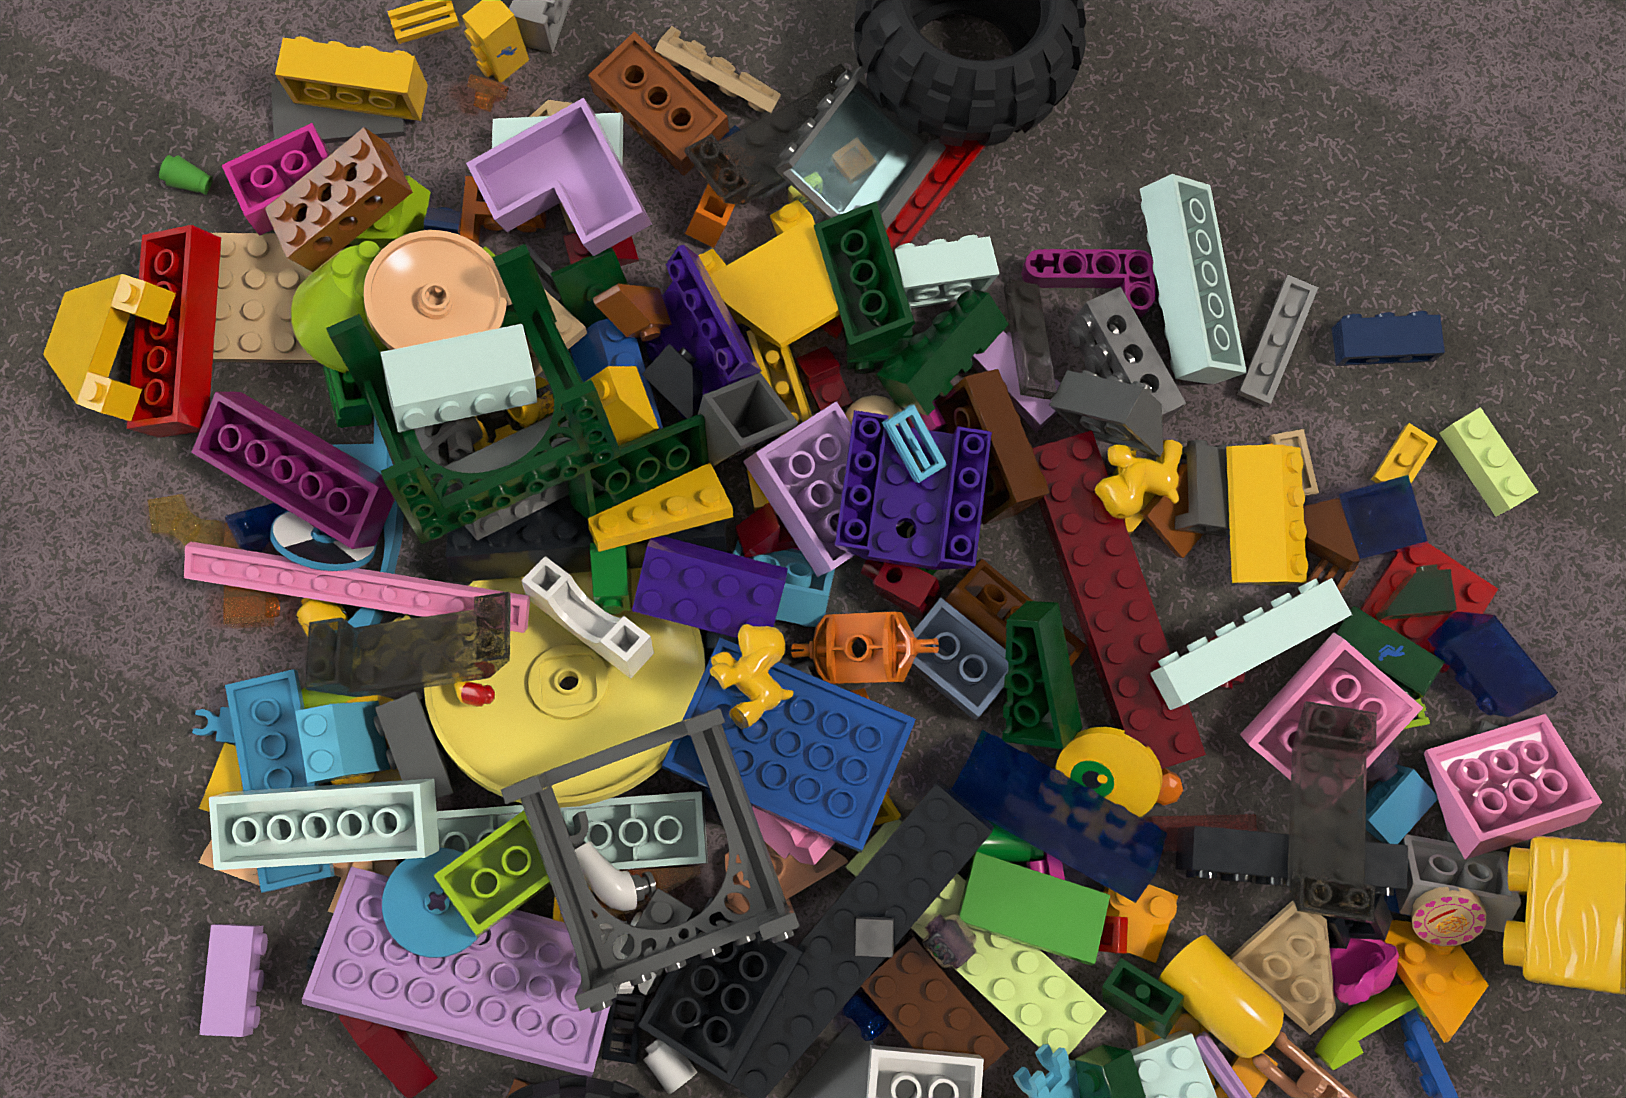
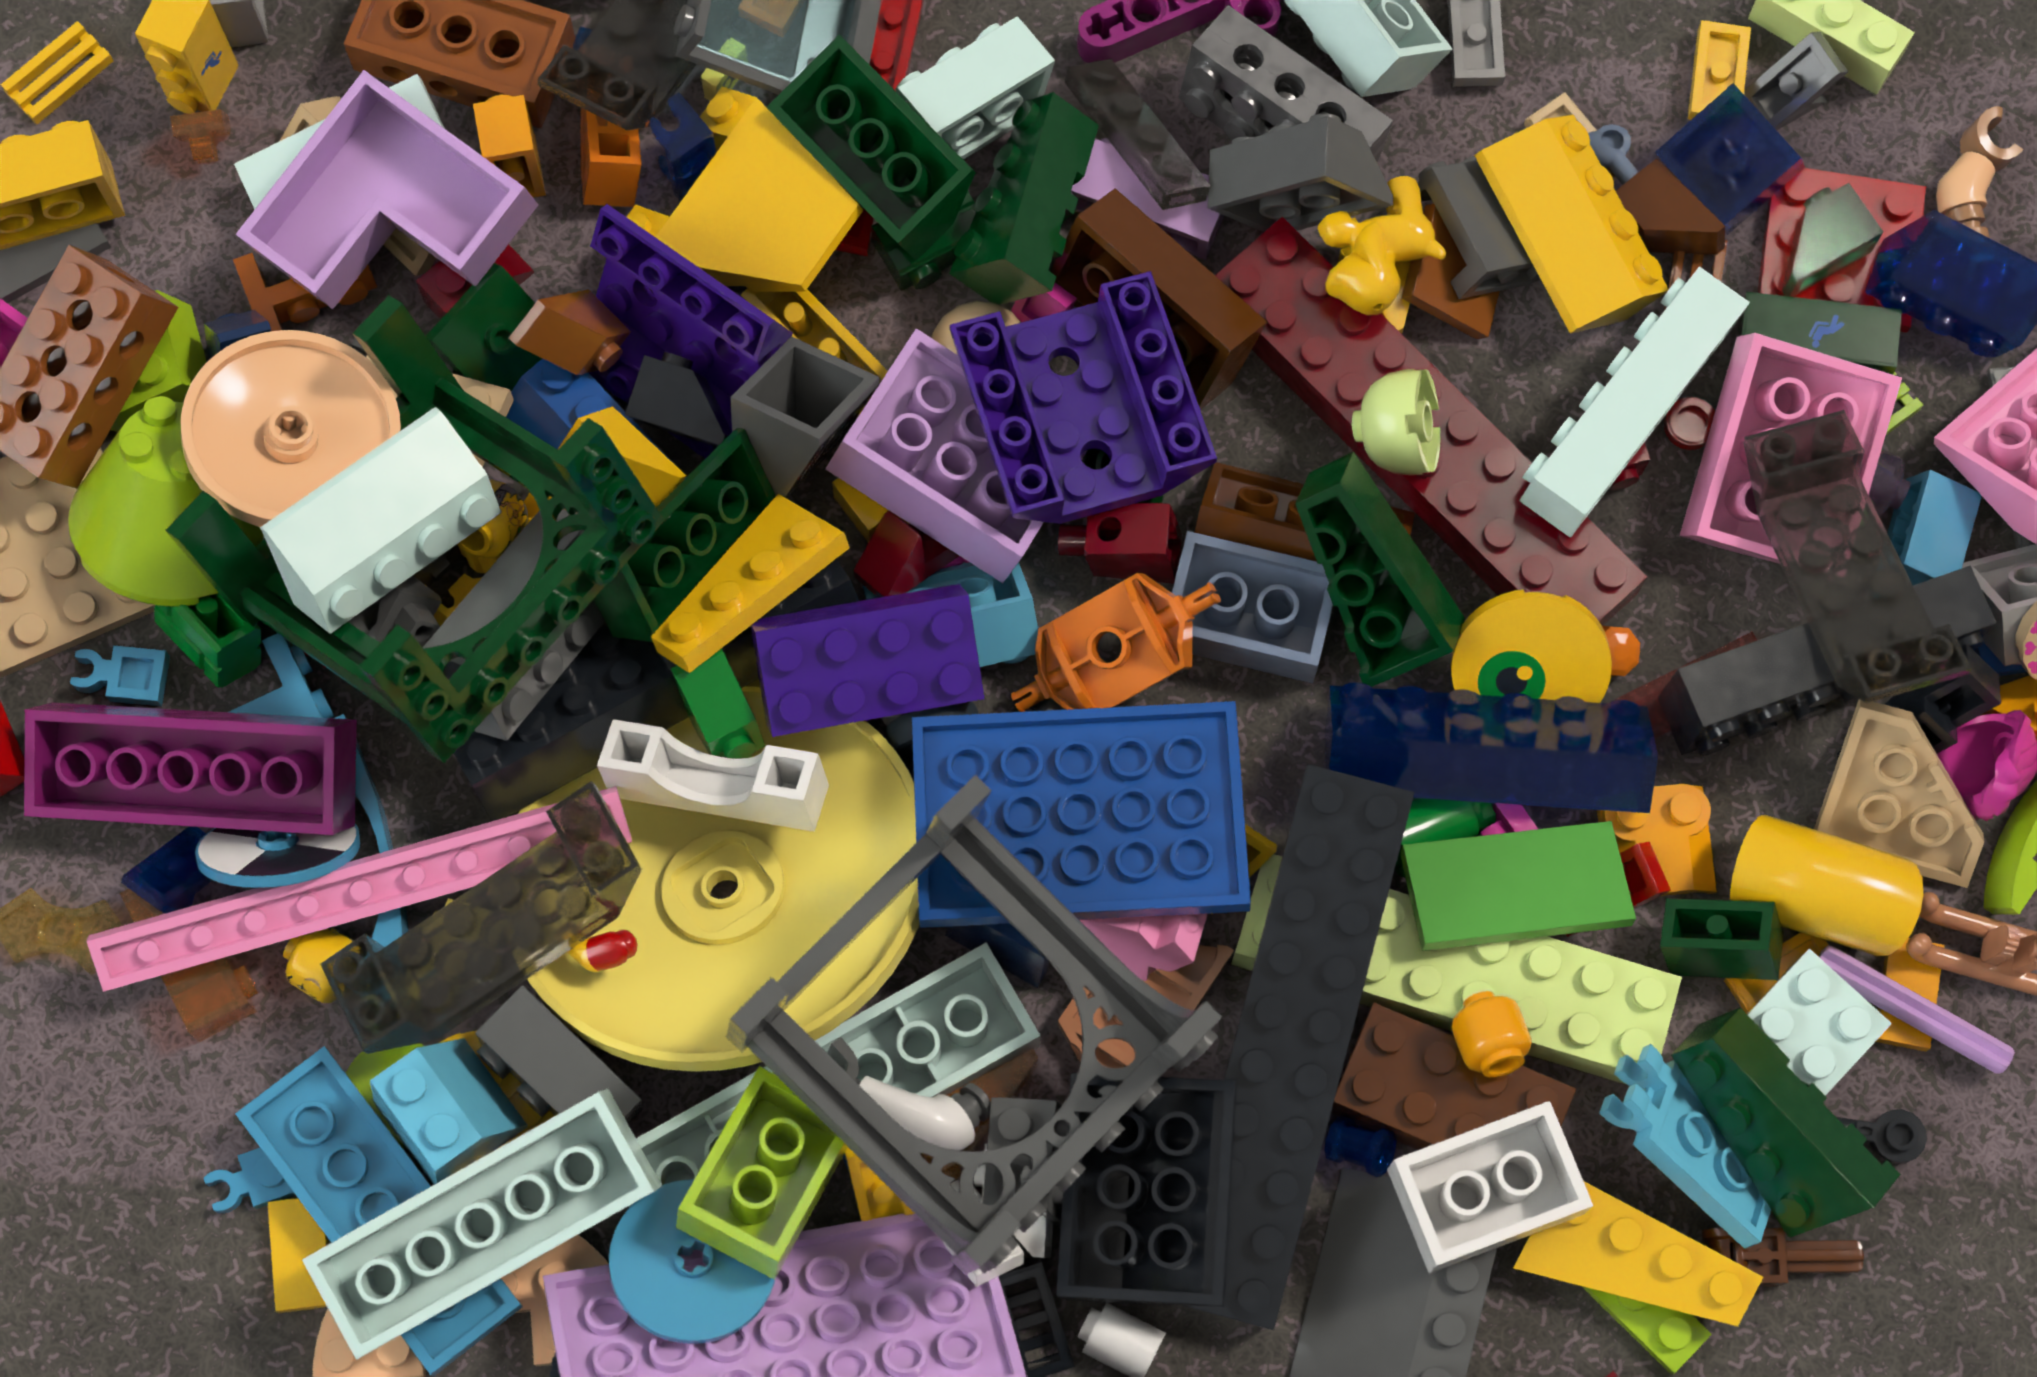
camera: 25 degrees left, 5 degrees down
(293, 395) = (130, 675): none -> dark azure plate
(656, 179) = (509, 140): none -> light orange brick
(756, 228) = (686, 148): none -> clear blue hinge
(760, 650) = (979, 704): yellow animal -> none
(824, 378) = (874, 316): dark red slope -> none
(874, 936) = (1324, 1009): flat silver tile -> none
(899, 418) = (1041, 347): medium azure tile -> none
(949, 940) = (1426, 976): head -> none
(971, 995) = (1491, 1034): none -> light orange head
(1098, 592) = (1399, 422): none -> yellowish green cylinder
(1280, 668) = (1689, 423): none -> tile
(1313, 477) = (1611, 146): none -> sand blue animal
(1448, 488) = (1797, 81): none -> dark grey slope
(1523, 599) = (1964, 186): none -> piece

